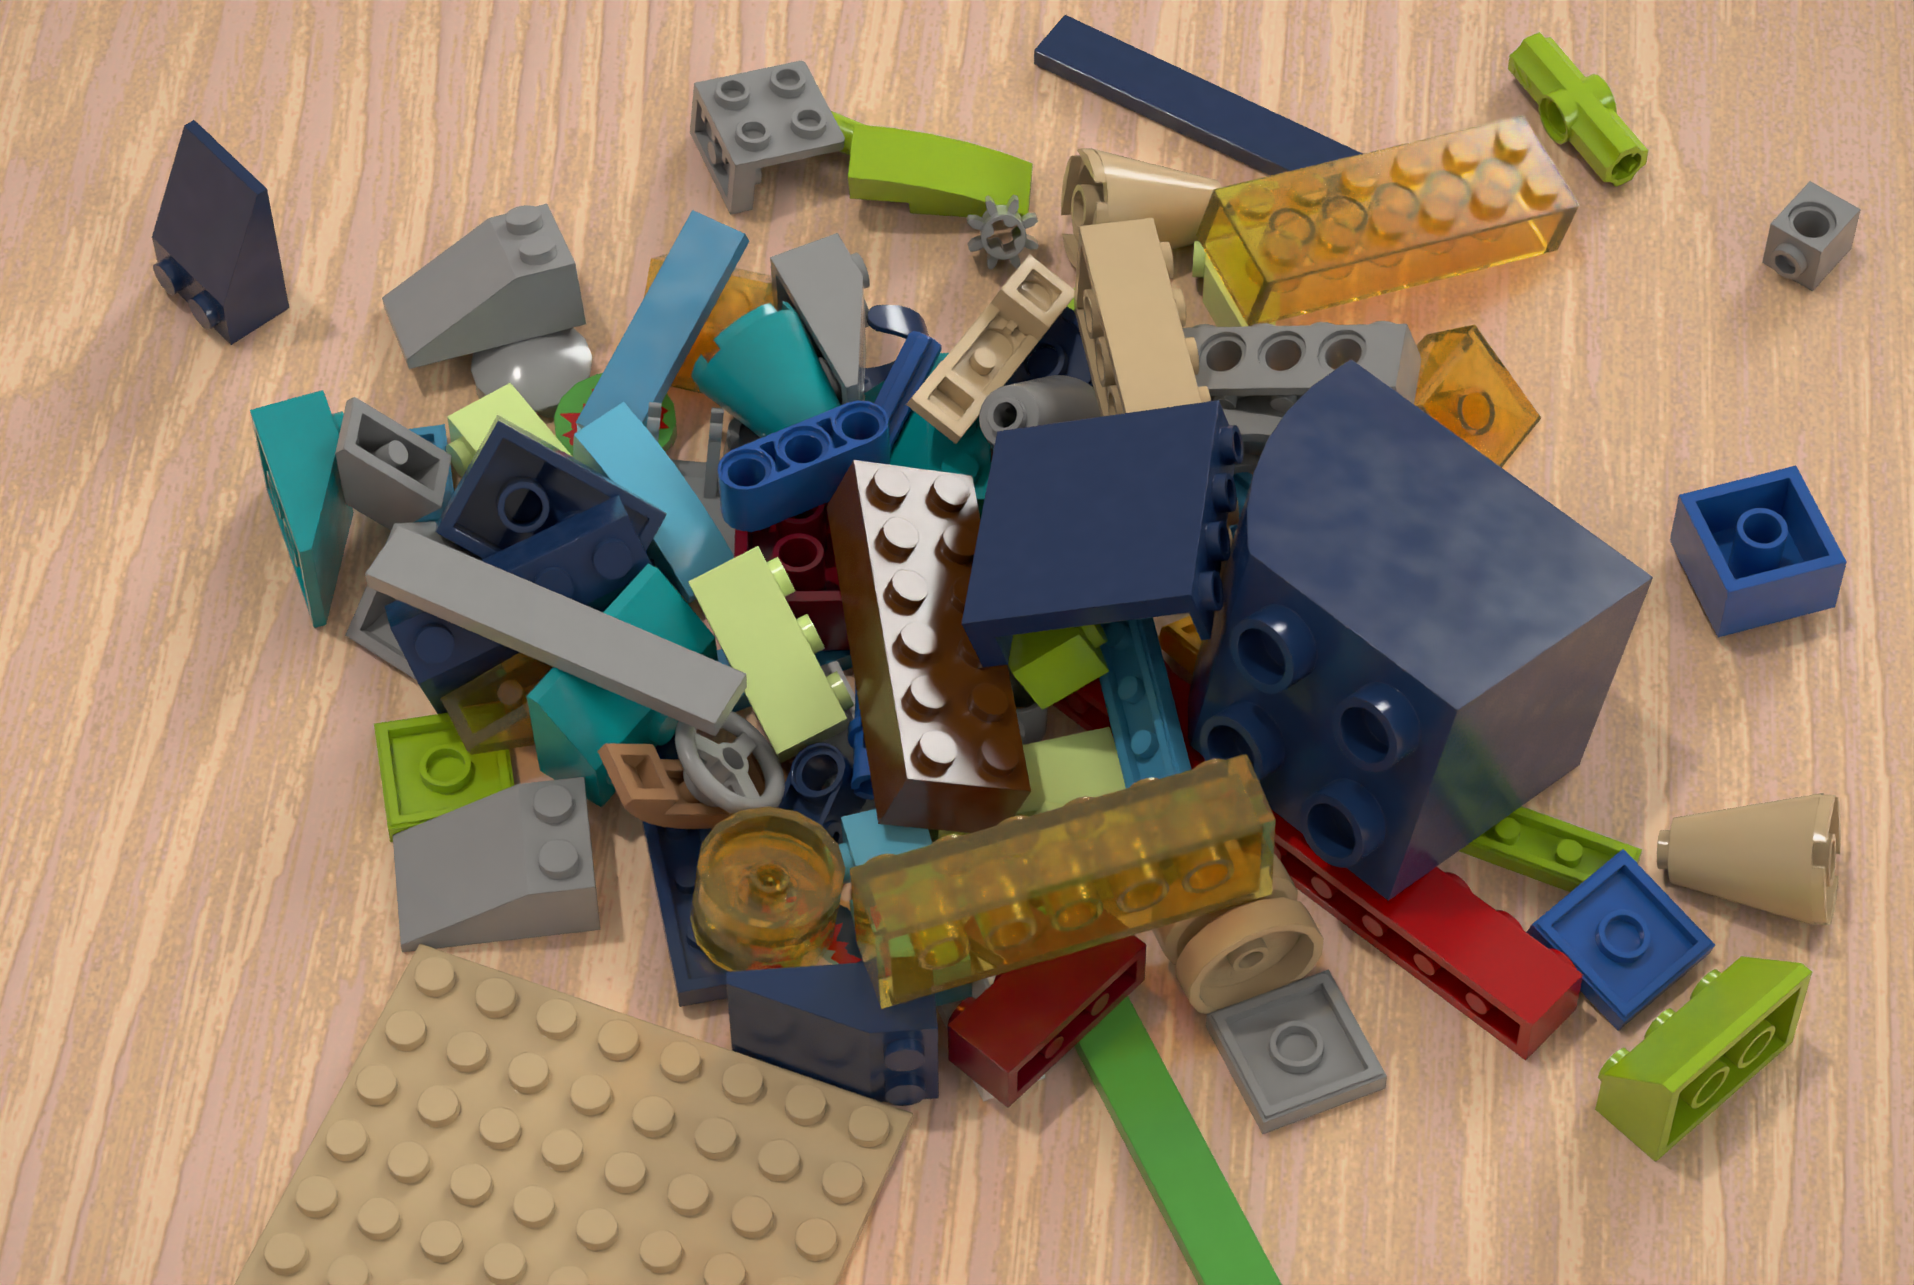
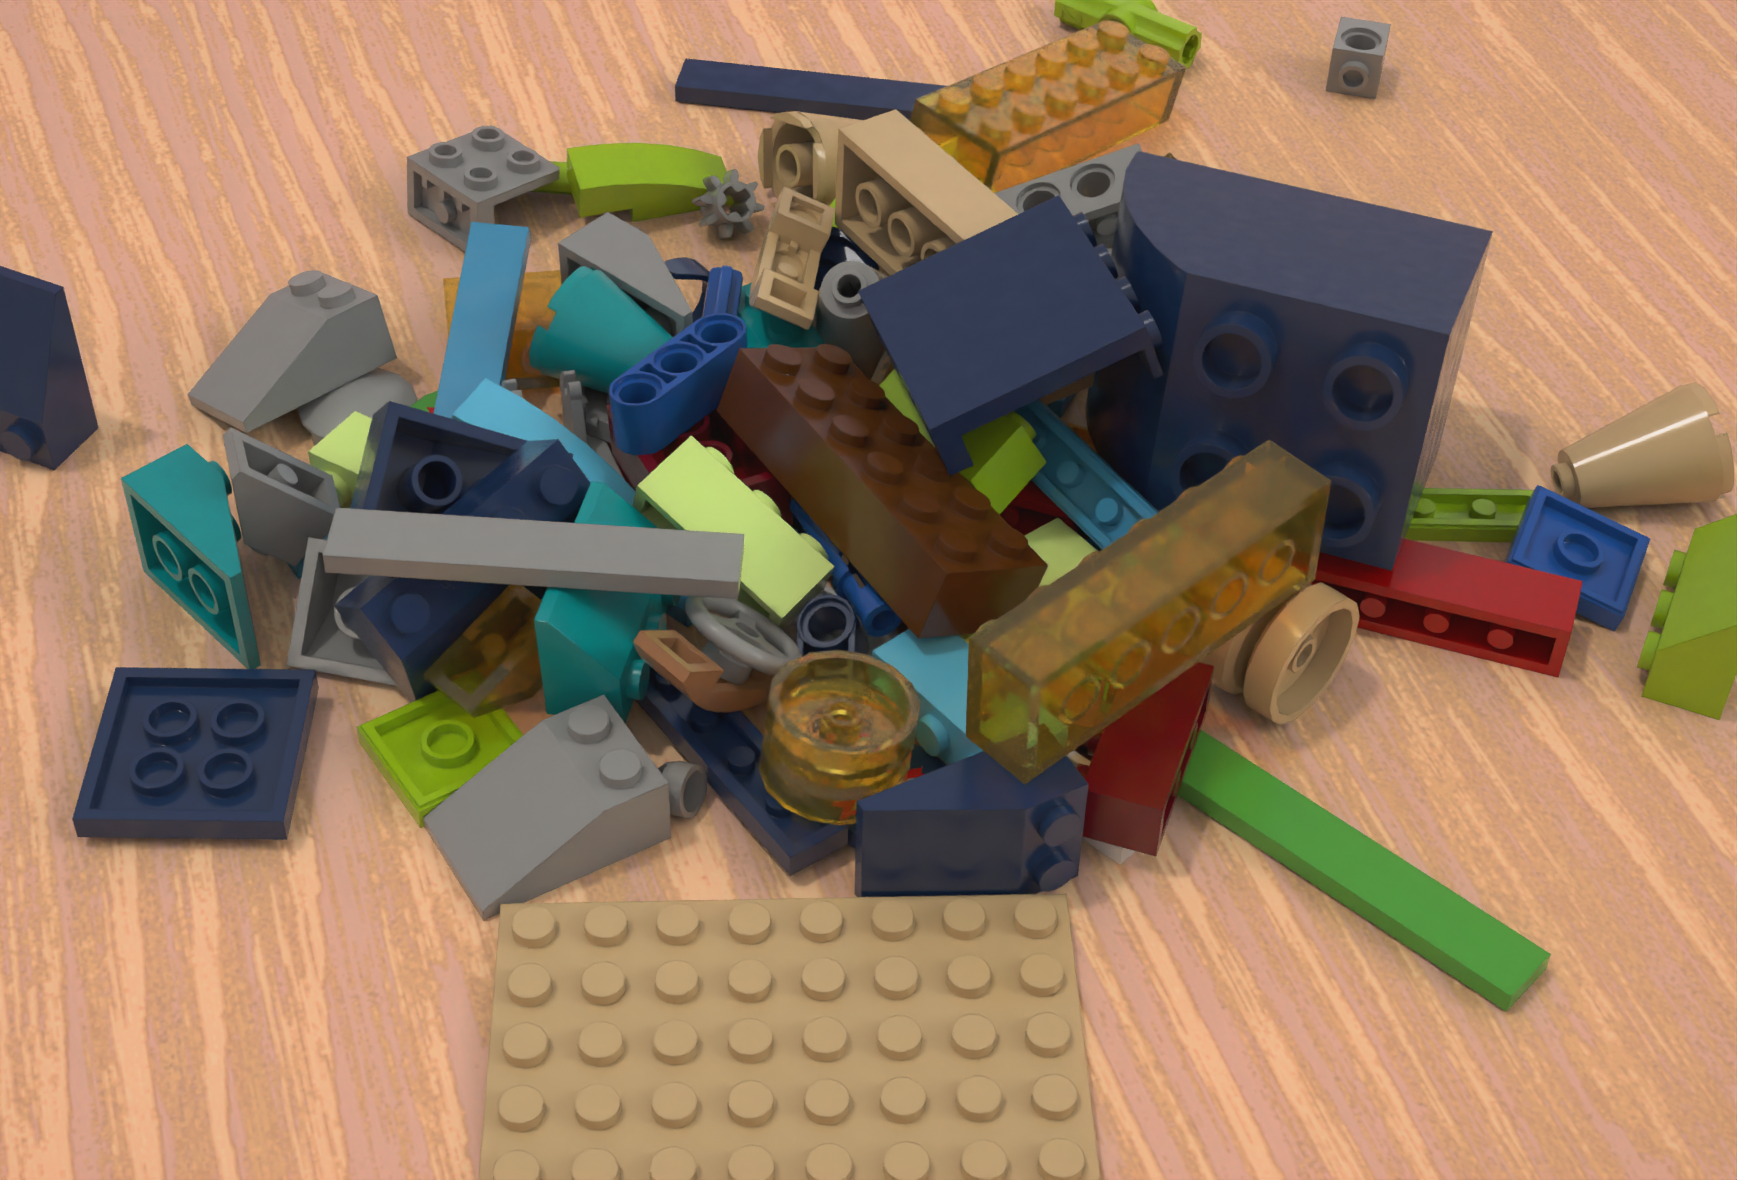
camera: 25 degrees left, 10 degrees down
(229, 703) = (198, 754): none -> dark blue plate
(630, 877) = (686, 787): none -> light grey hinge
(1295, 1051) = (1369, 731): light grey tile -> none
(1757, 551) = (1520, 253): blue brick -> none

